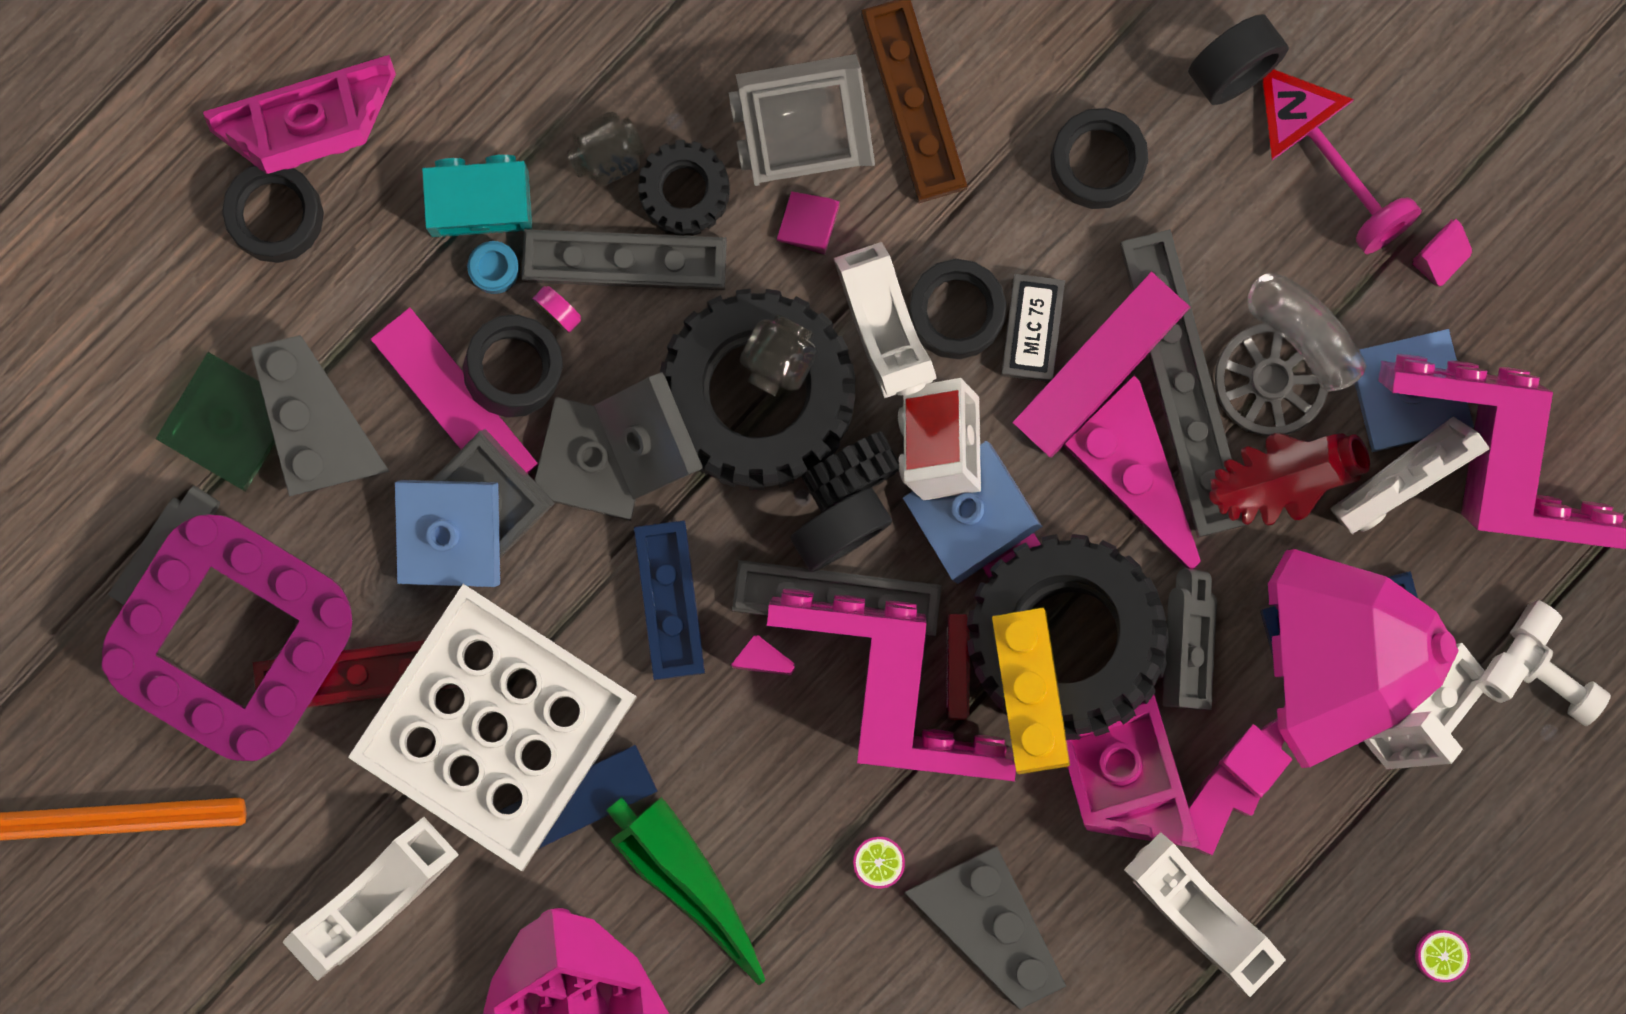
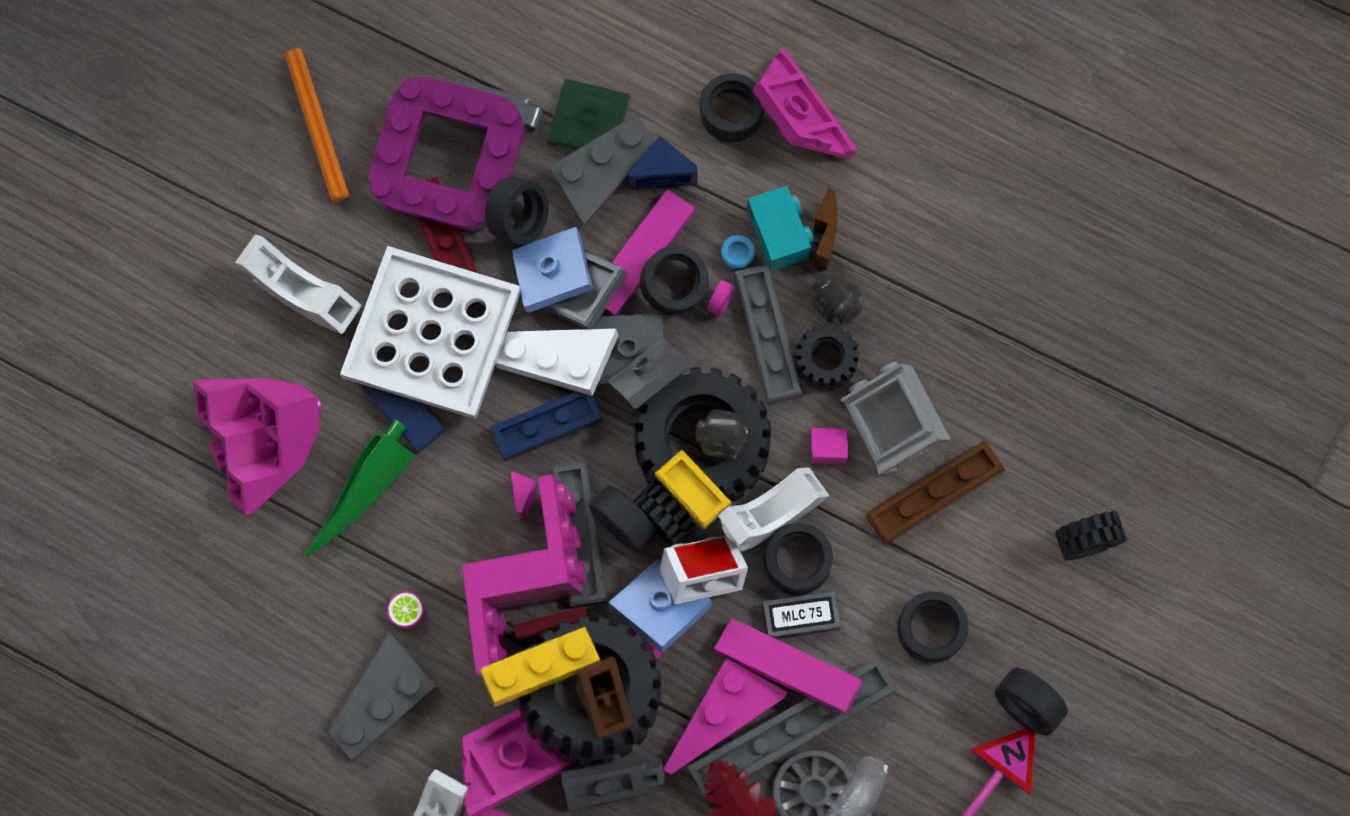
camera: 75 degrees right, 10 degrees down
(336, 335) = (662, 167): none -> dark blue slope
(337, 576) = (500, 205): none -> black tyre
(488, 127) = (826, 224): none -> reddish brown slope
(579, 556) = (559, 356): none -> white wing
(838, 419) = (692, 489): none -> yellow tile
(1103, 614) = (604, 697): none -> reddish brown slope

